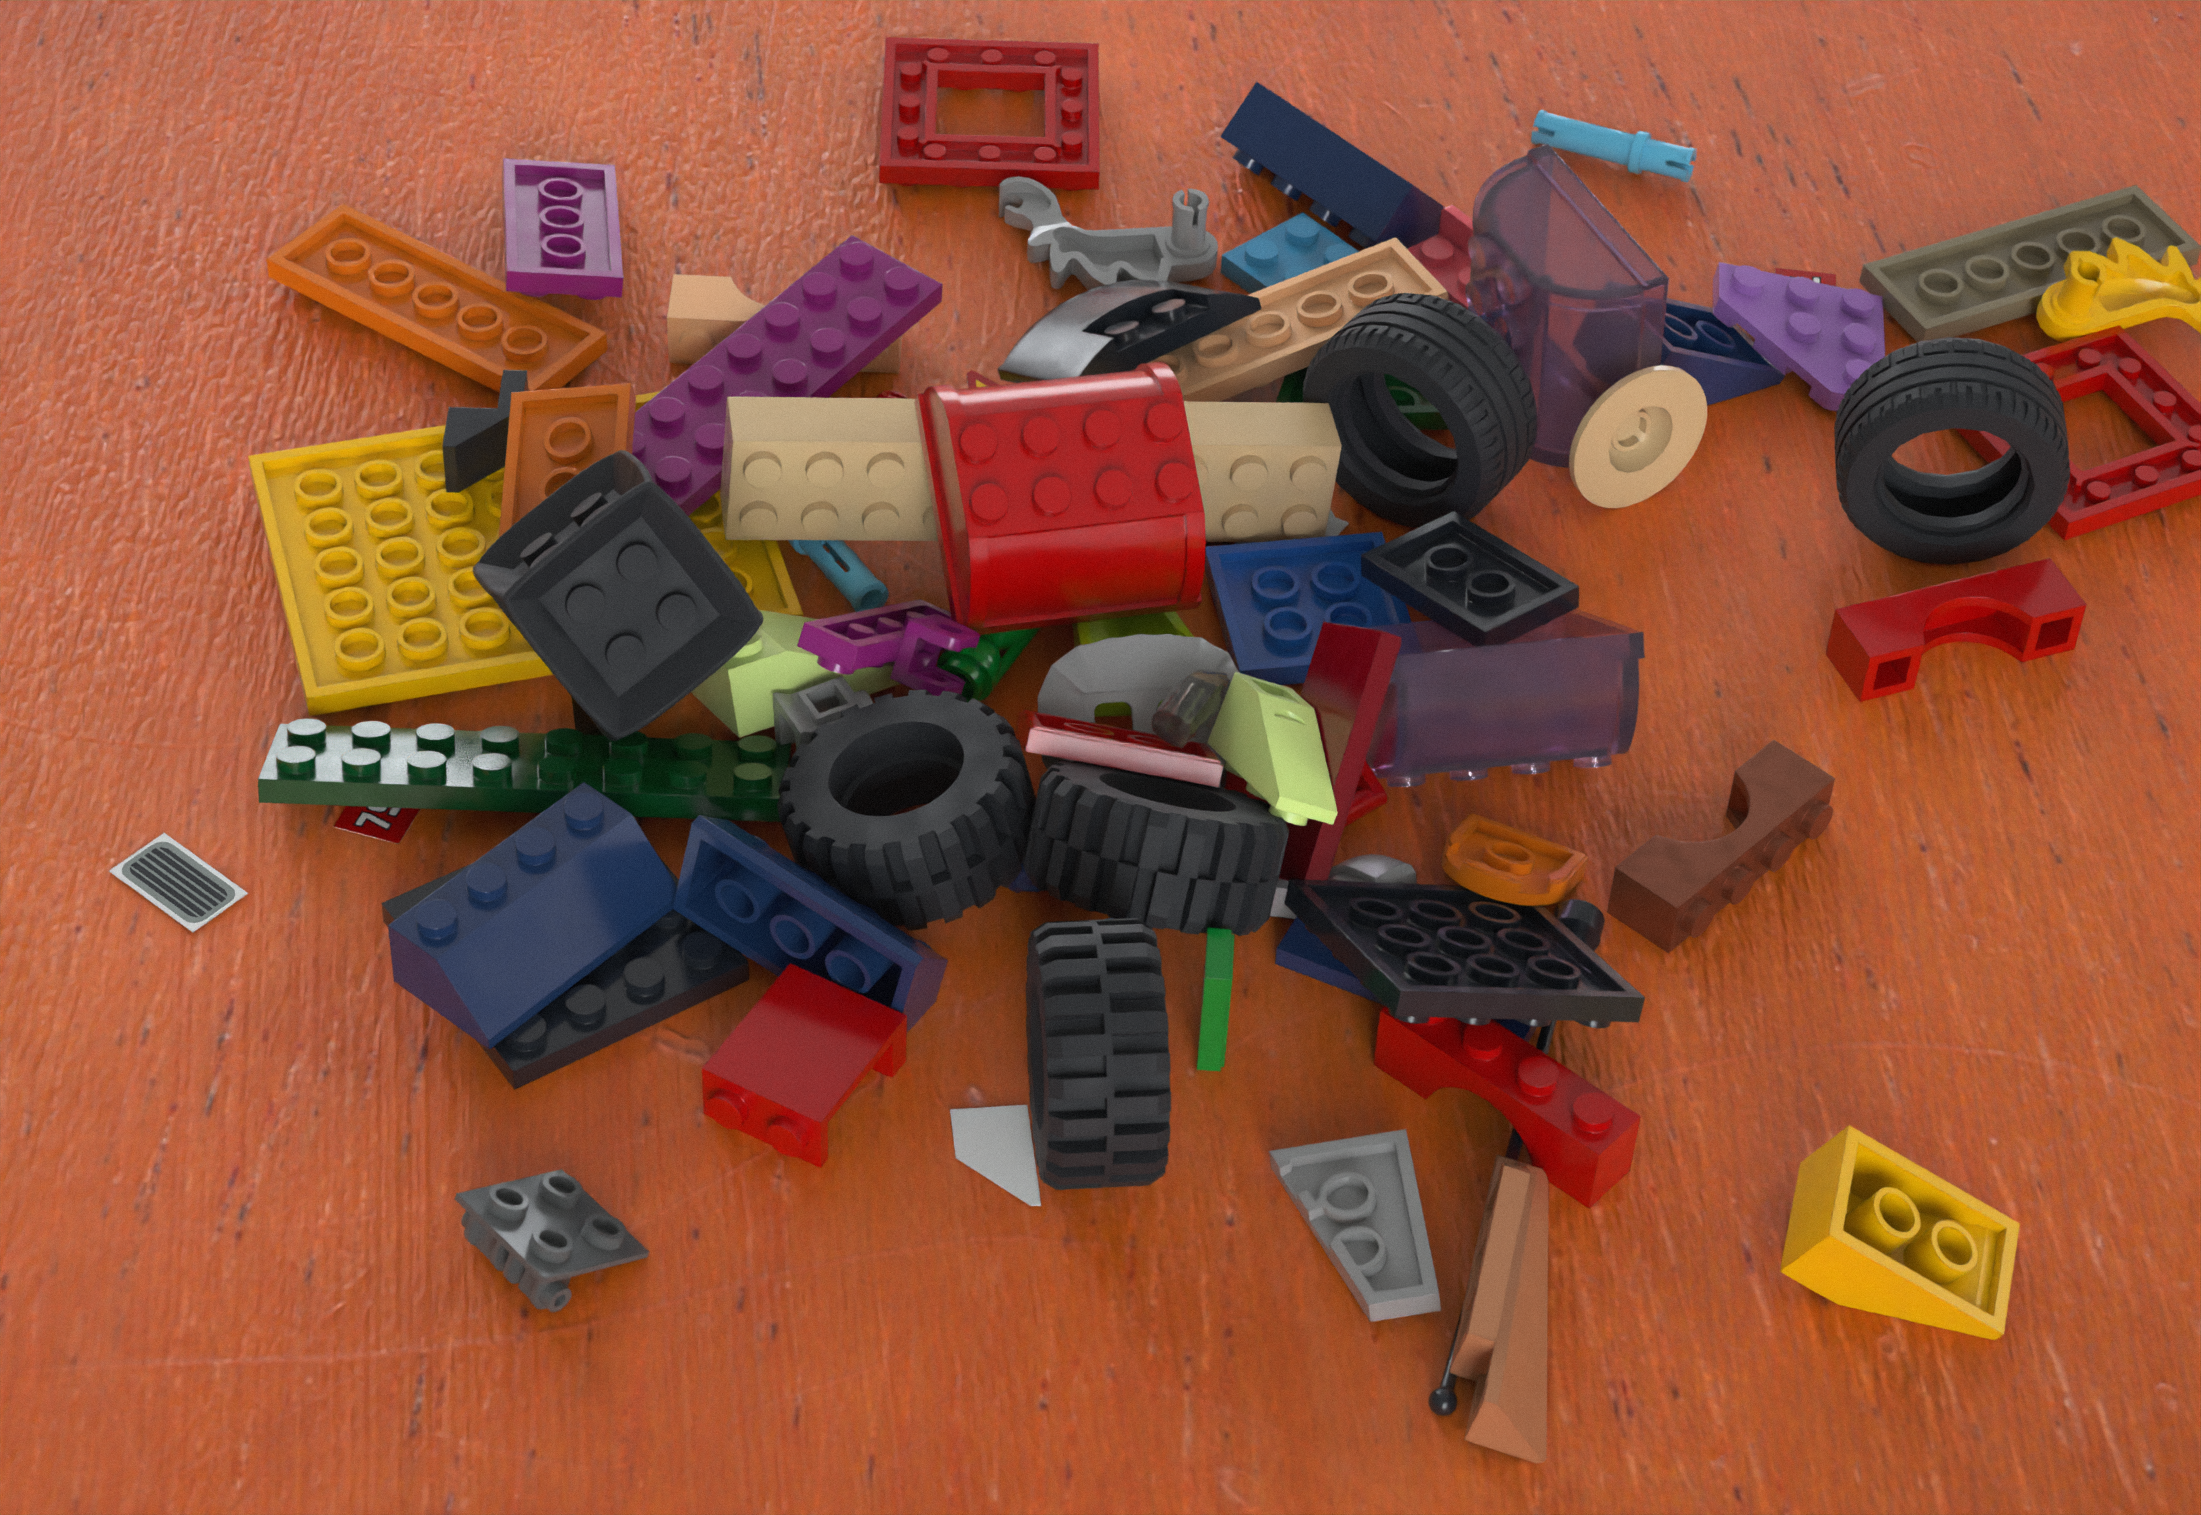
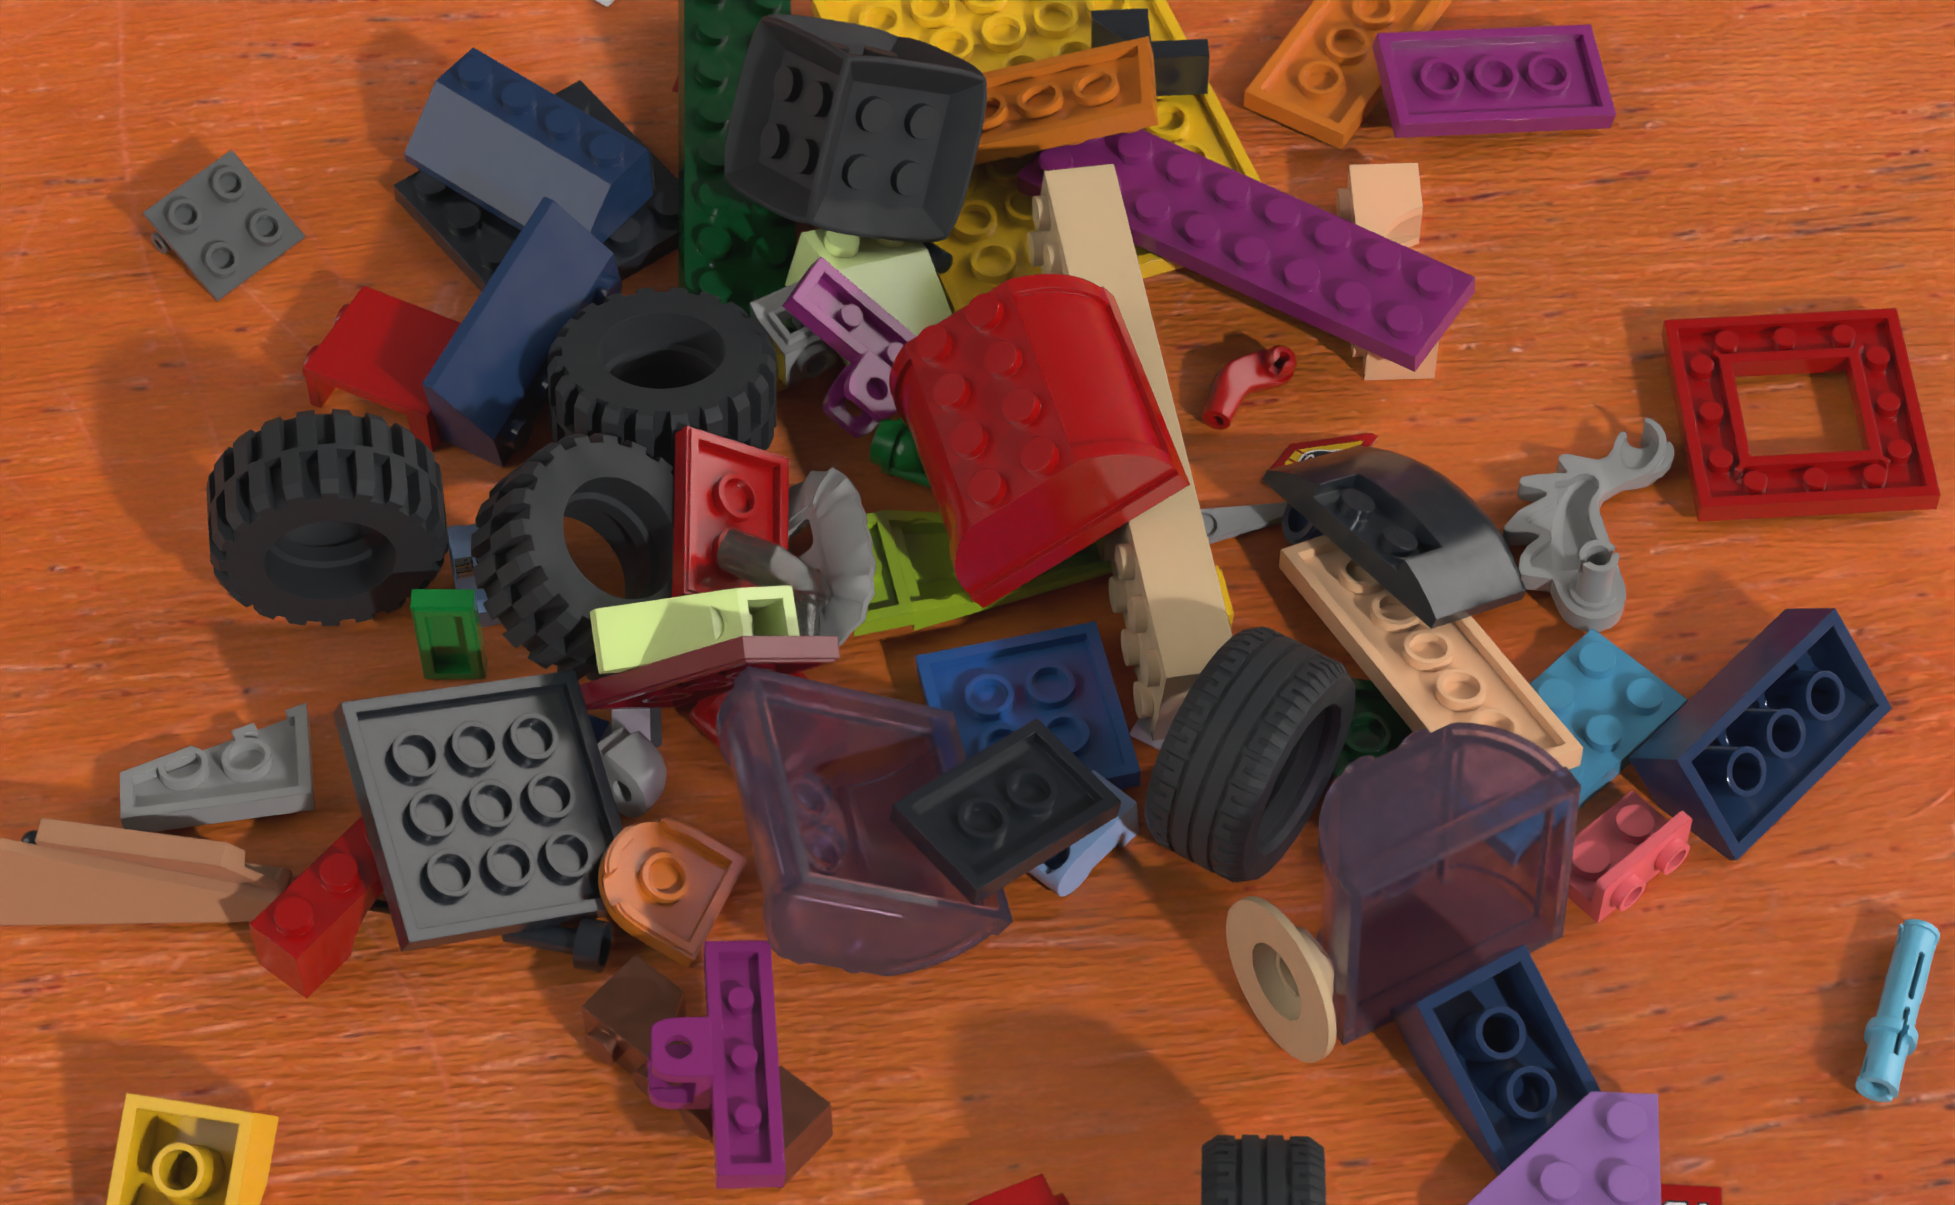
camera: 90 degrees right, 10 degrees up
(1754, 785) = (728, 1062): none -> magenta plate

